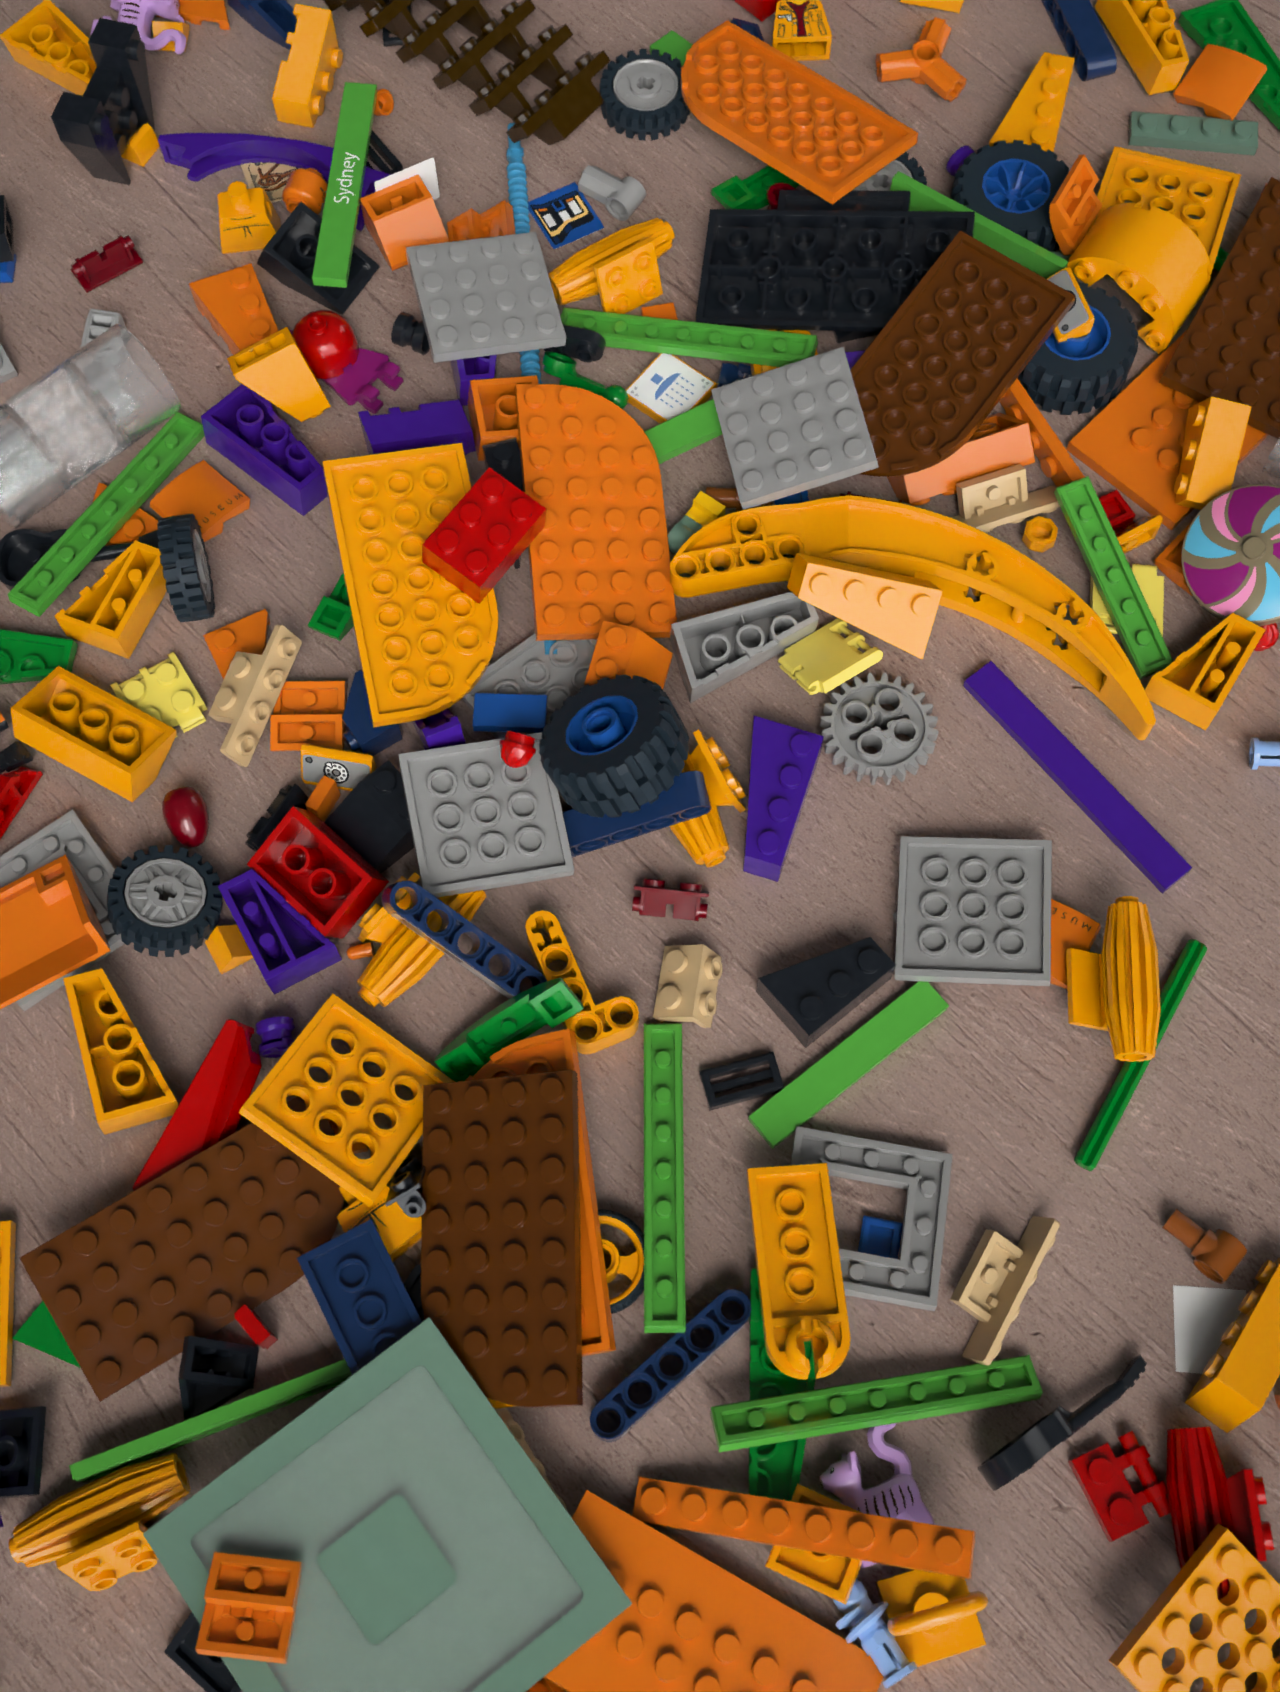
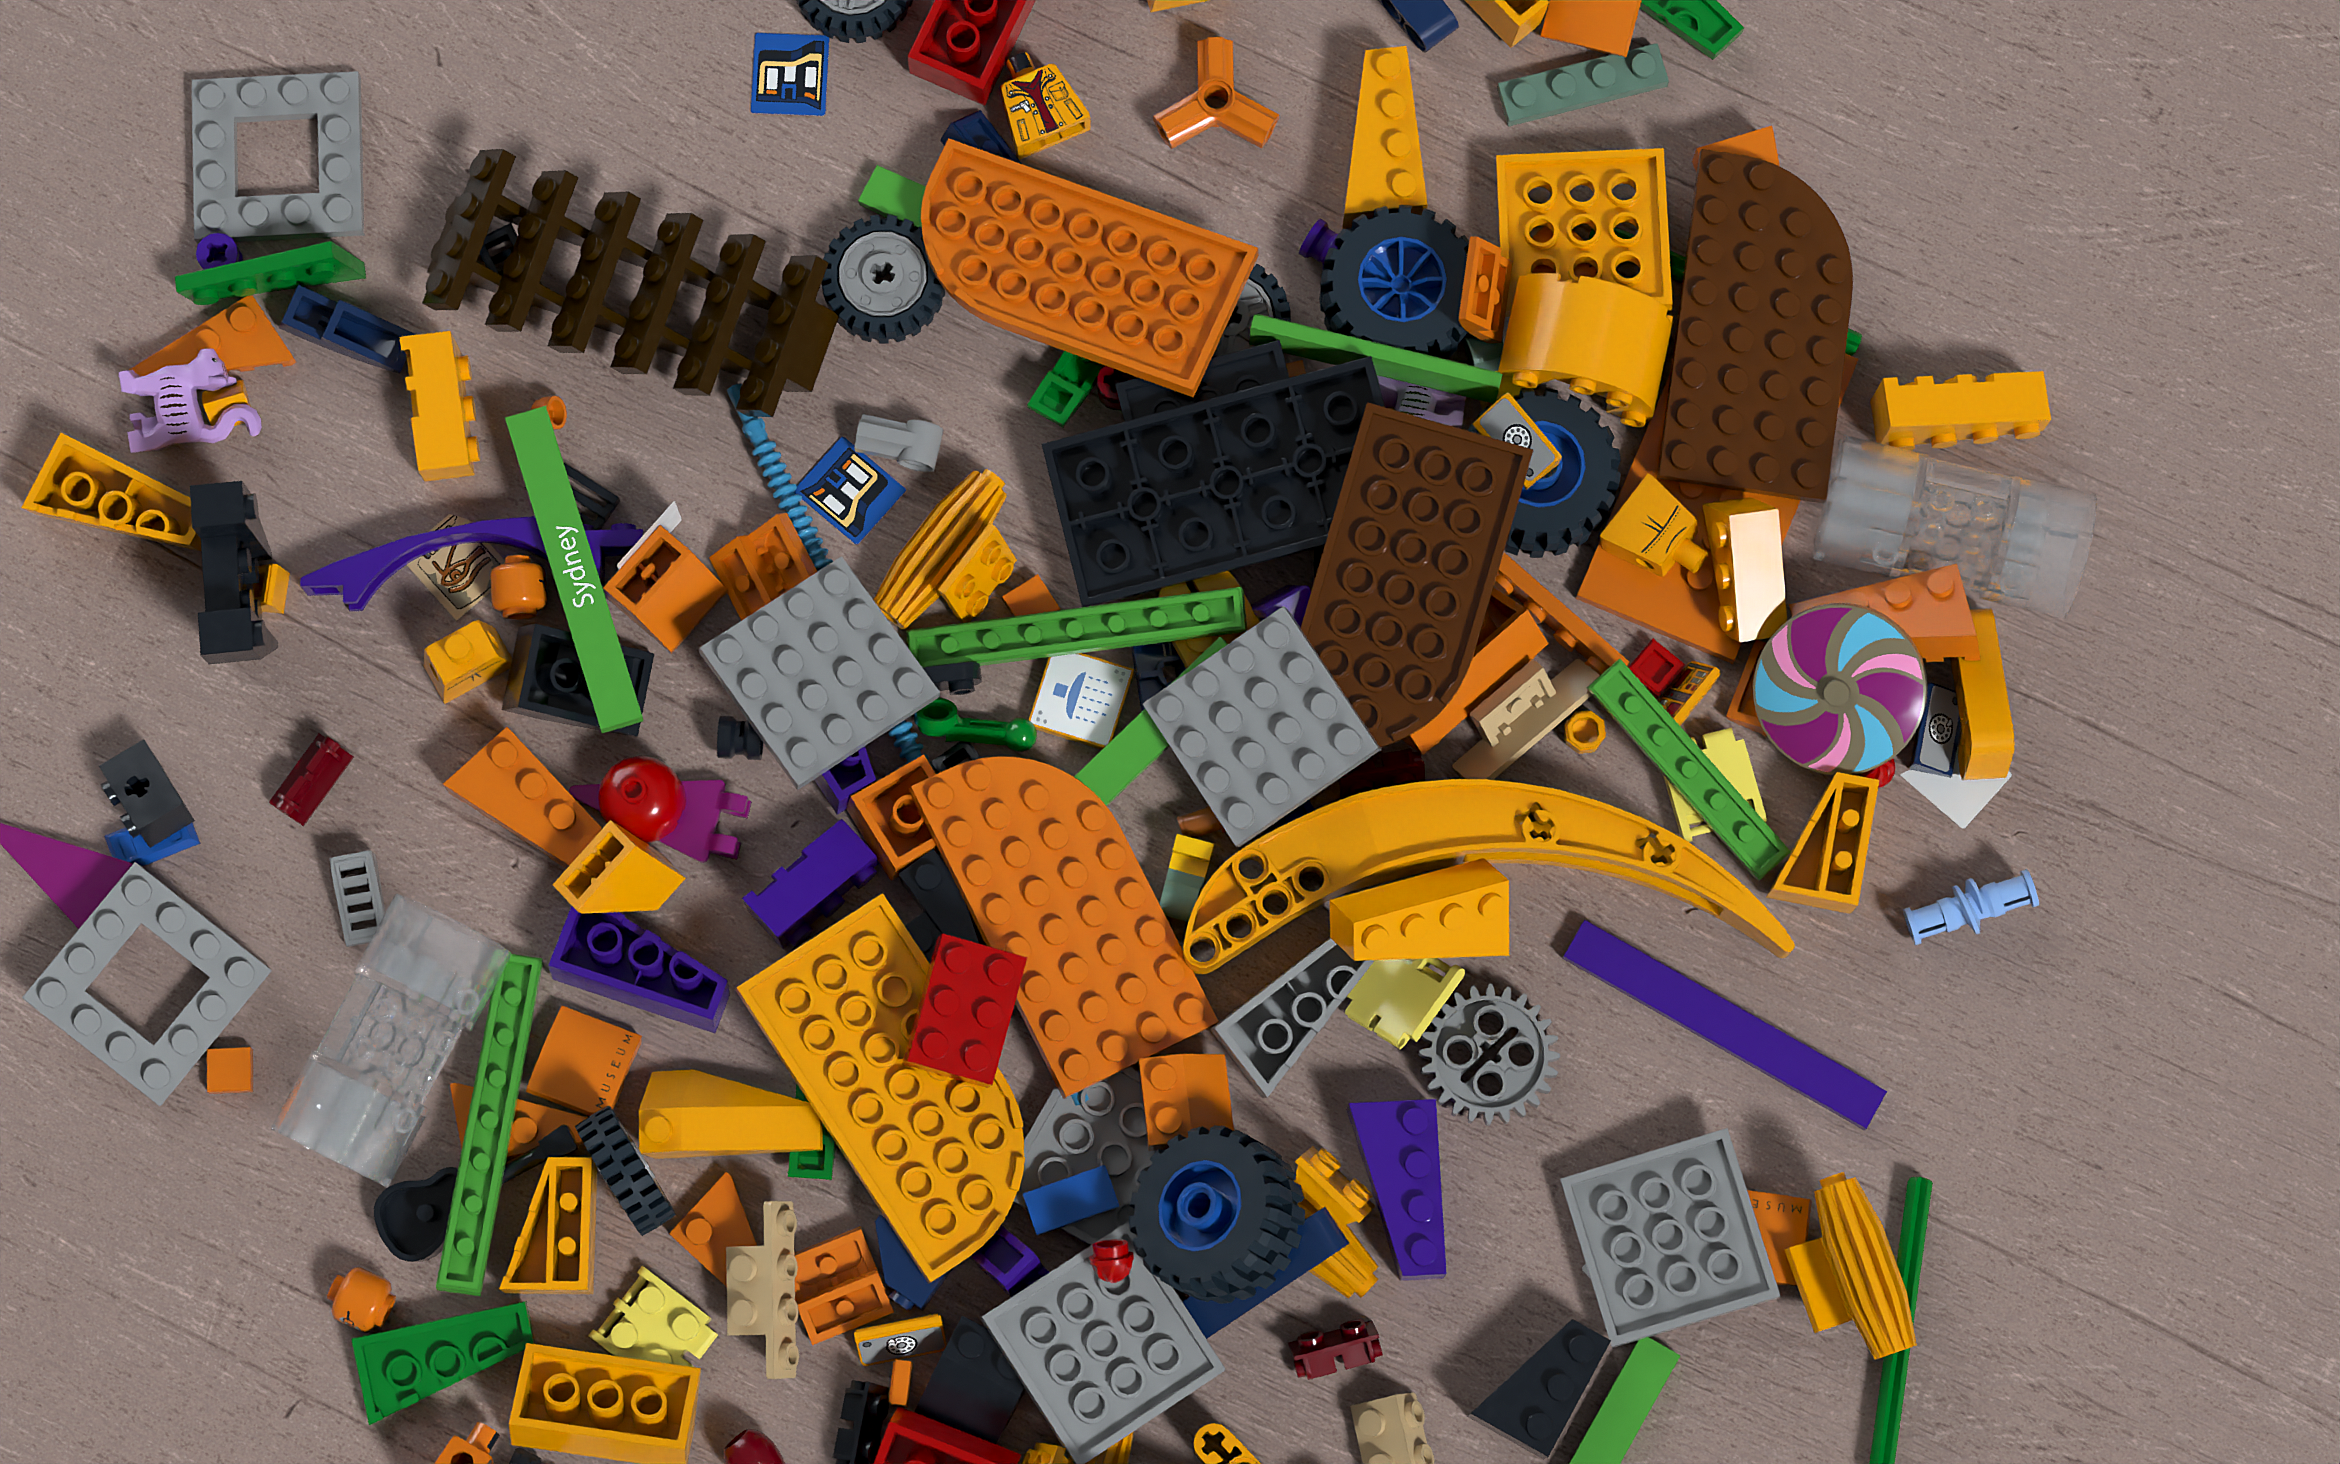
camera: 25 degrees left, 10 degrees up
(275, 568) = (714, 1116): none -> light orange wedge
(1144, 409) = (1654, 531): none -> light orange torso

